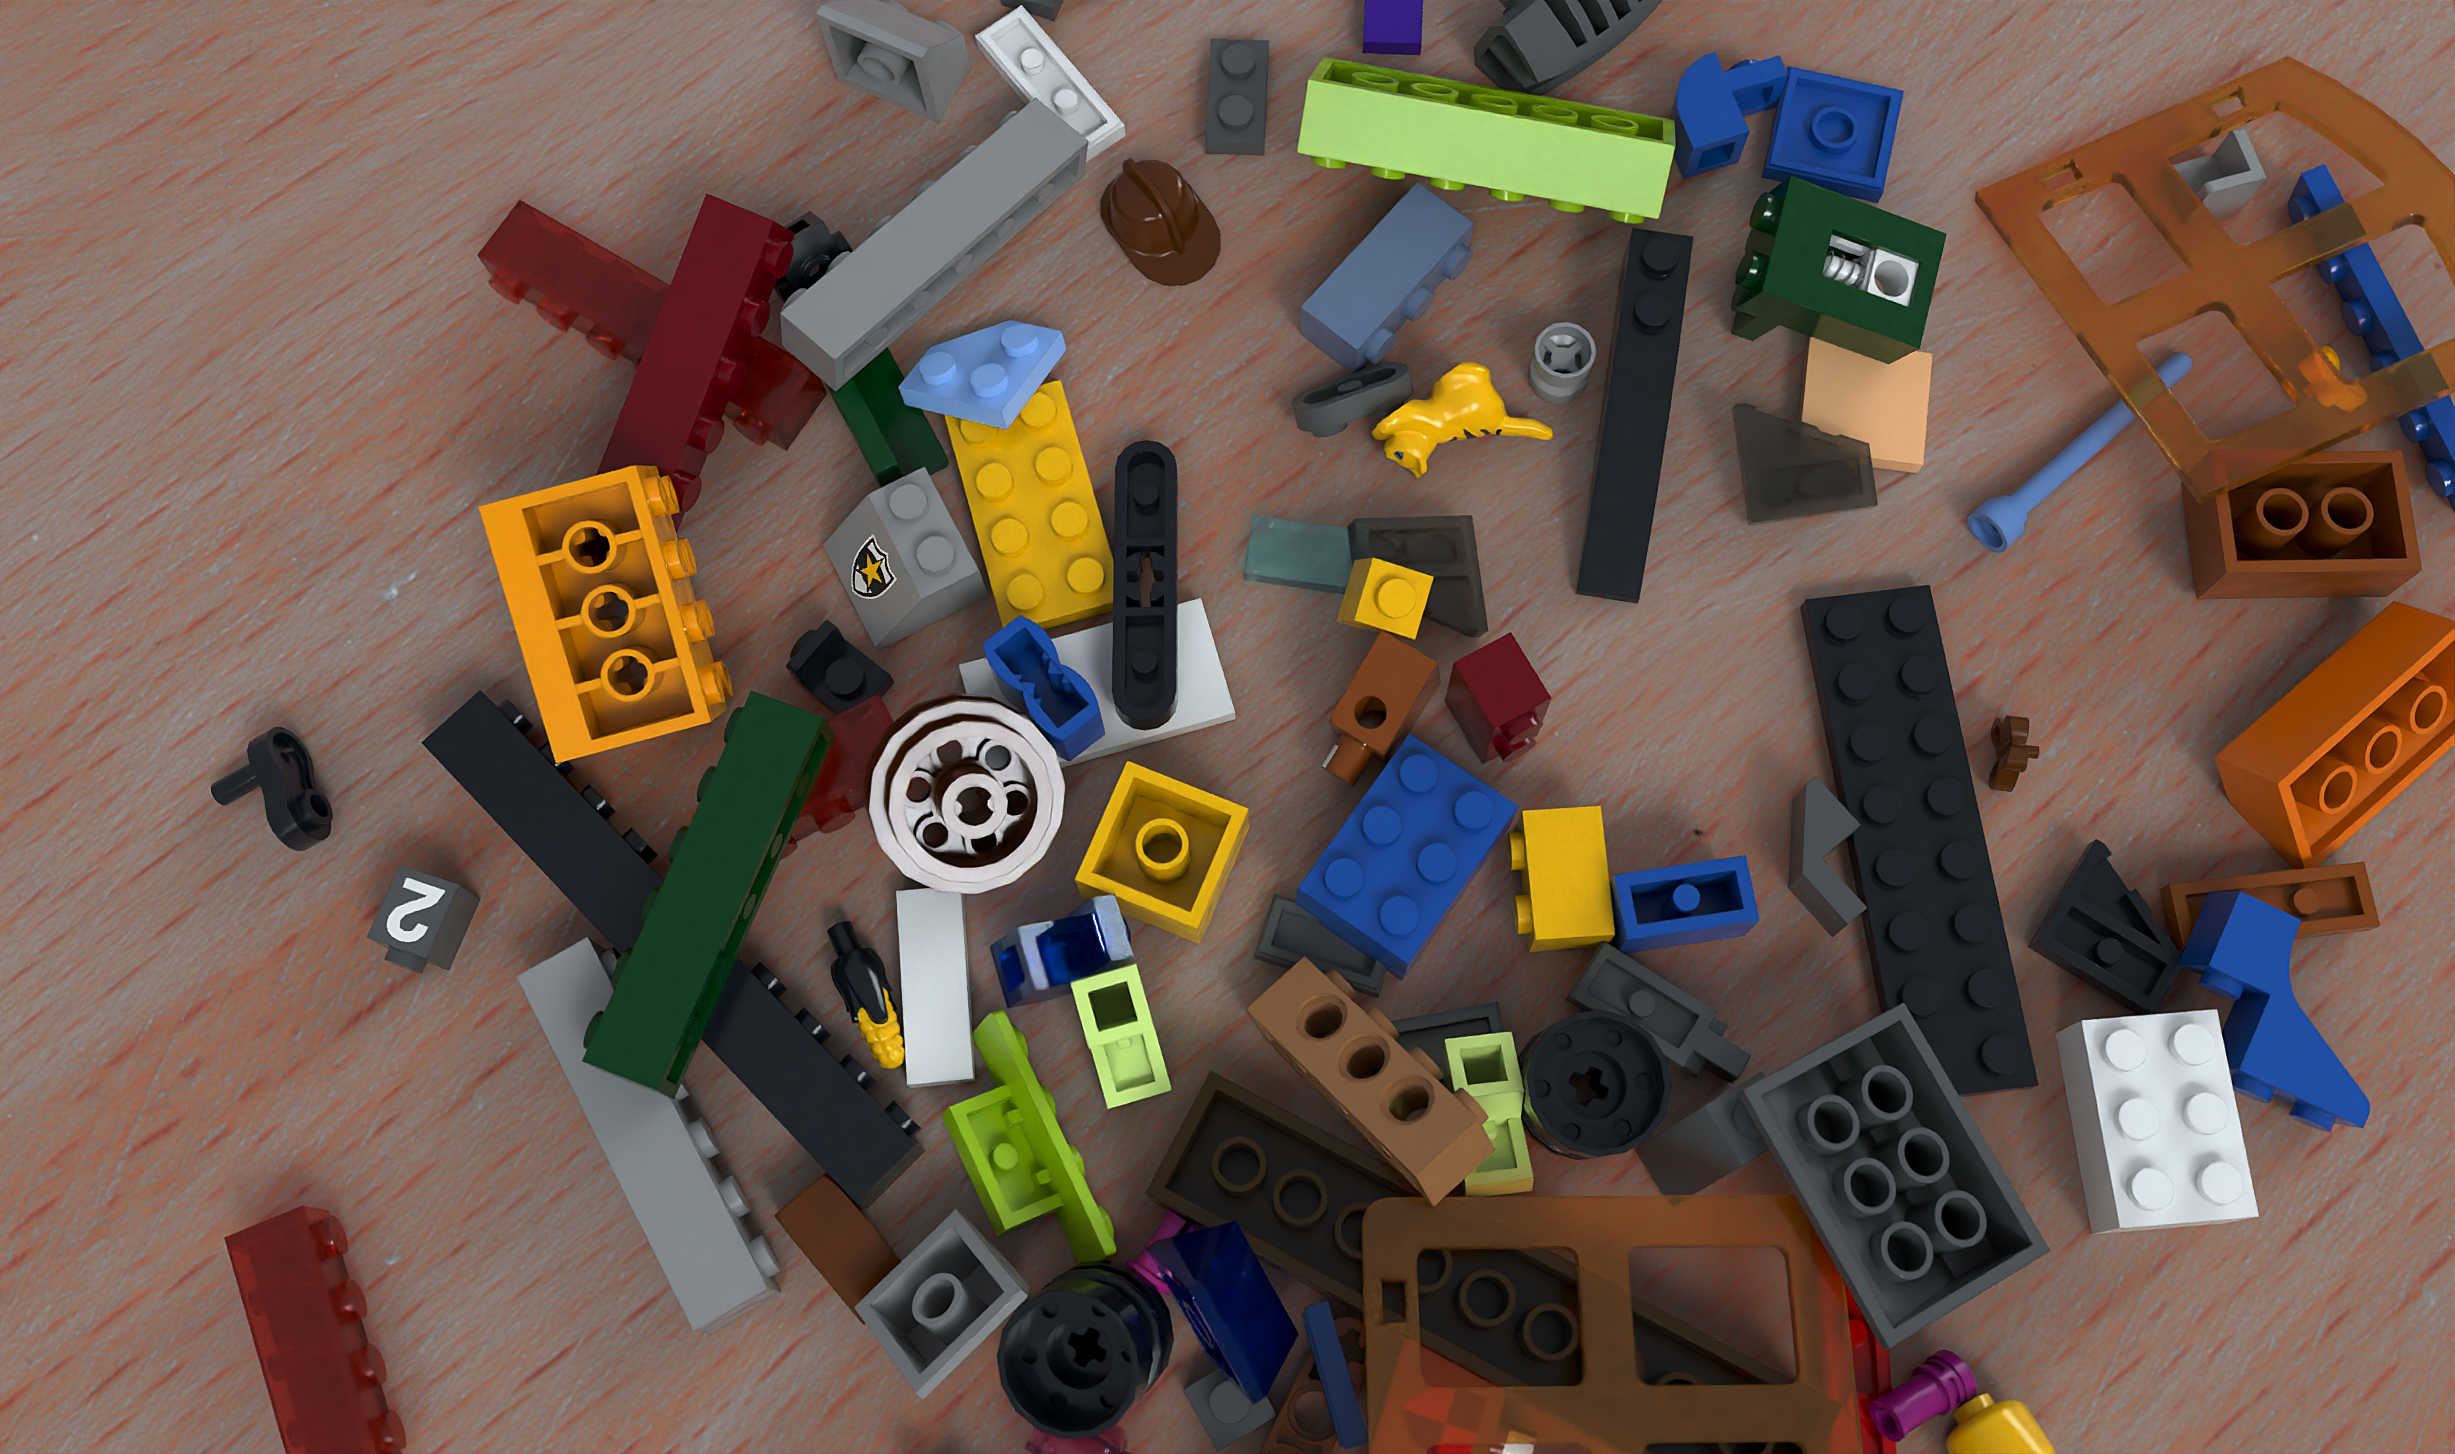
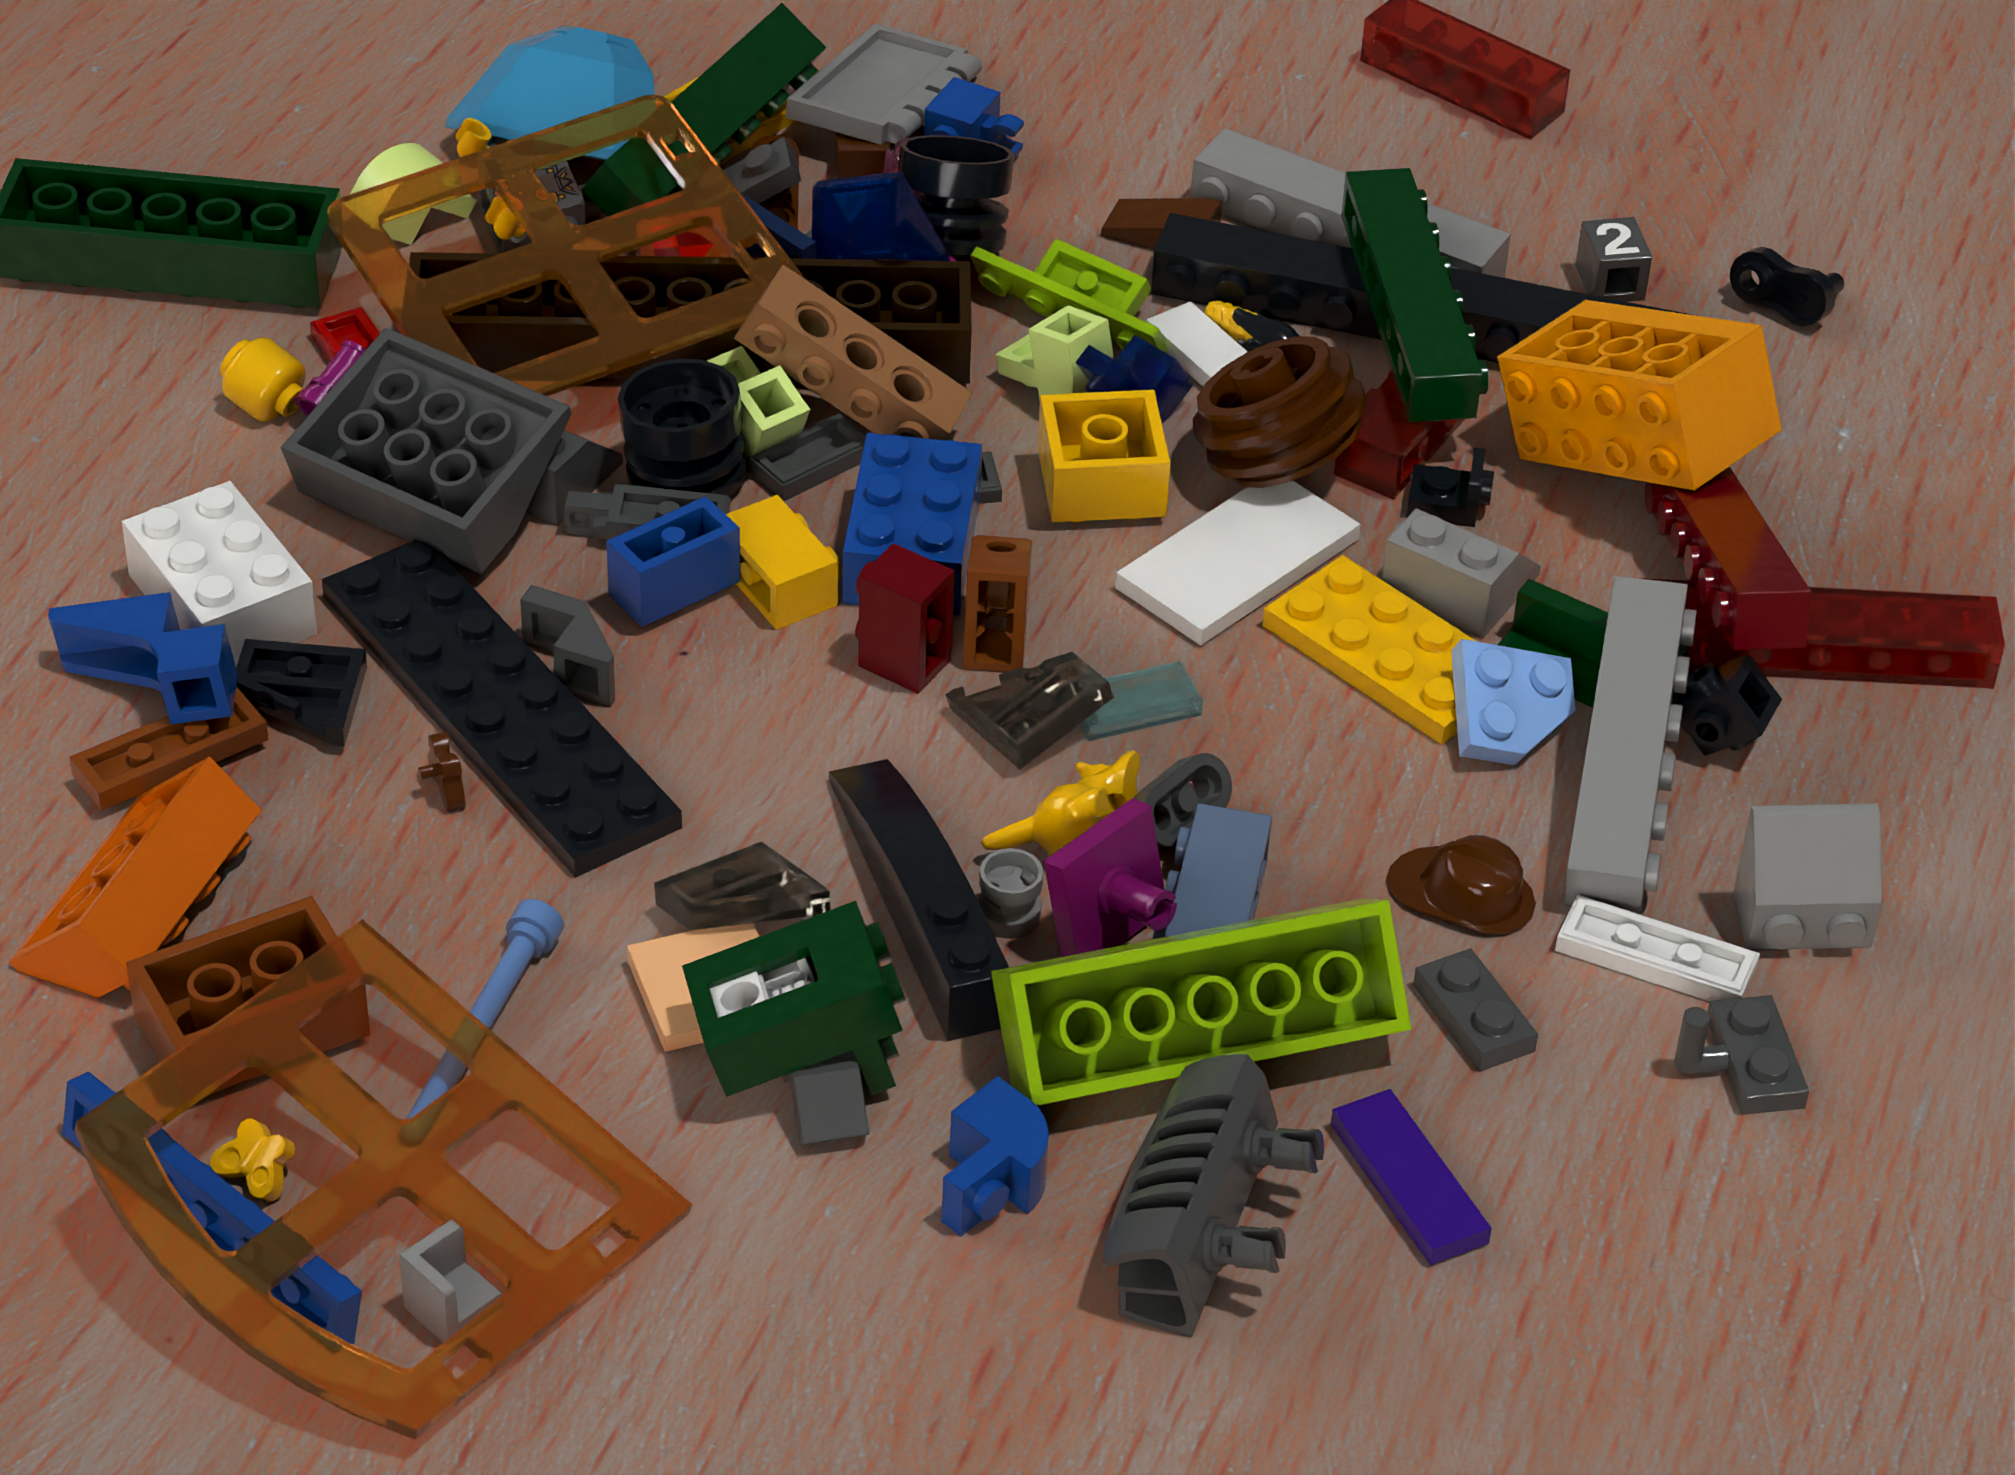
camera: 145 degrees right, 30 degrees down
(942, 1302) = (1061, 182): light grey slope -> none
(1038, 684) = (1271, 490): blue brick -> none
(1145, 636) = (1228, 574): black piece -> none
(1385, 598) = (1042, 619): yellow brick -> none
(1489, 288) = (1109, 883): none -> magenta tile
(1833, 133) = (868, 1206): blue tile -> none

